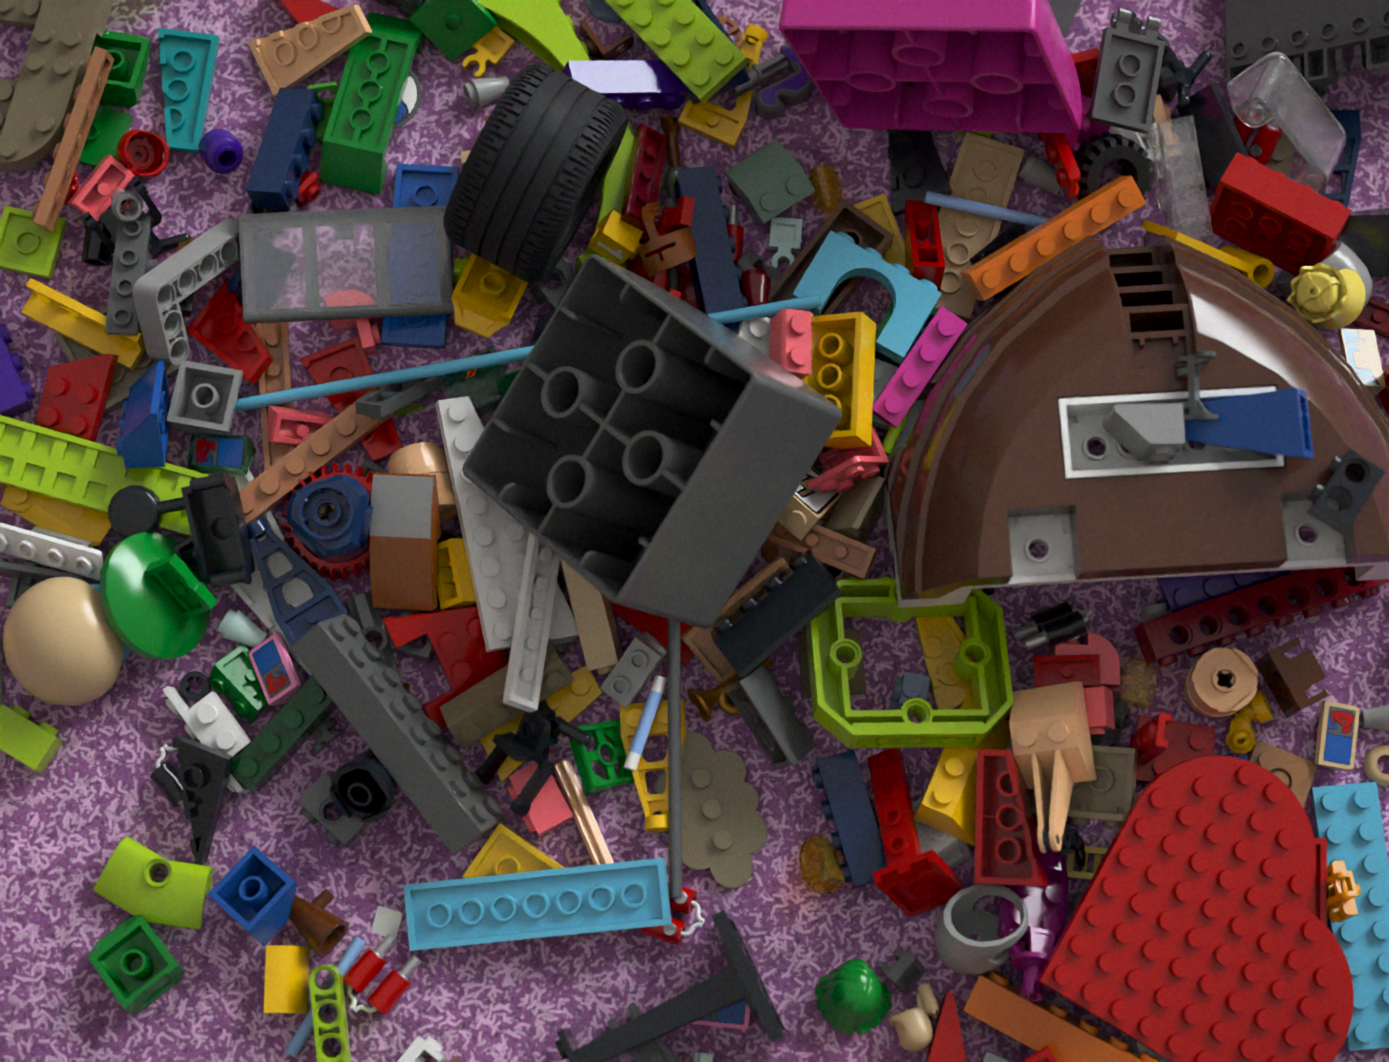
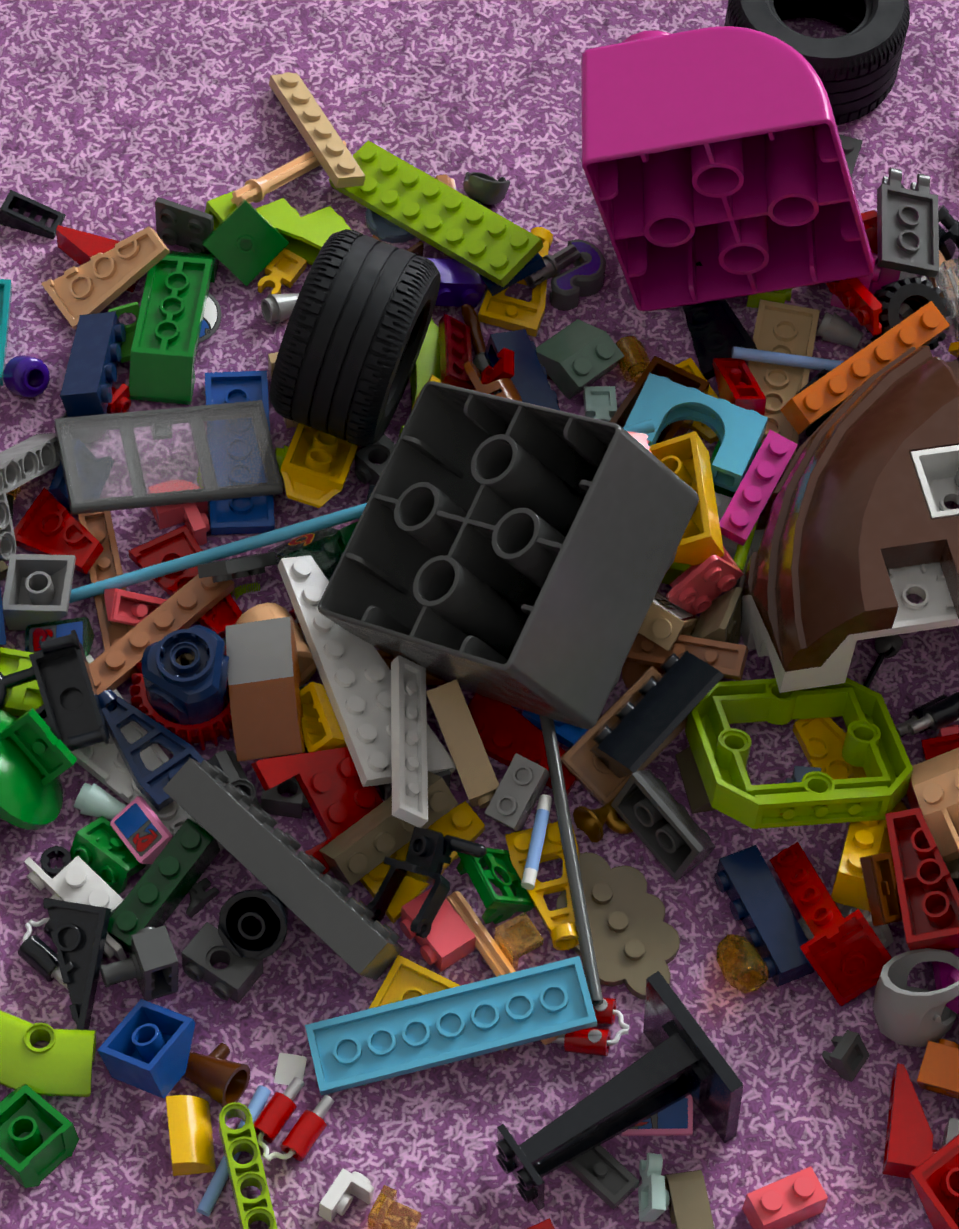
camera: 10 degrees left, 20 degrees down
(266, 808) = (151, 963): none -> dark grey brick
(613, 820) = (517, 938): none -> clear yellow panel
(853, 997) = (798, 1086): green hair -> none
(914, 1025) = (868, 1102): tan piece -> none
(959, 825) = (881, 888): none -> reddish brown tile

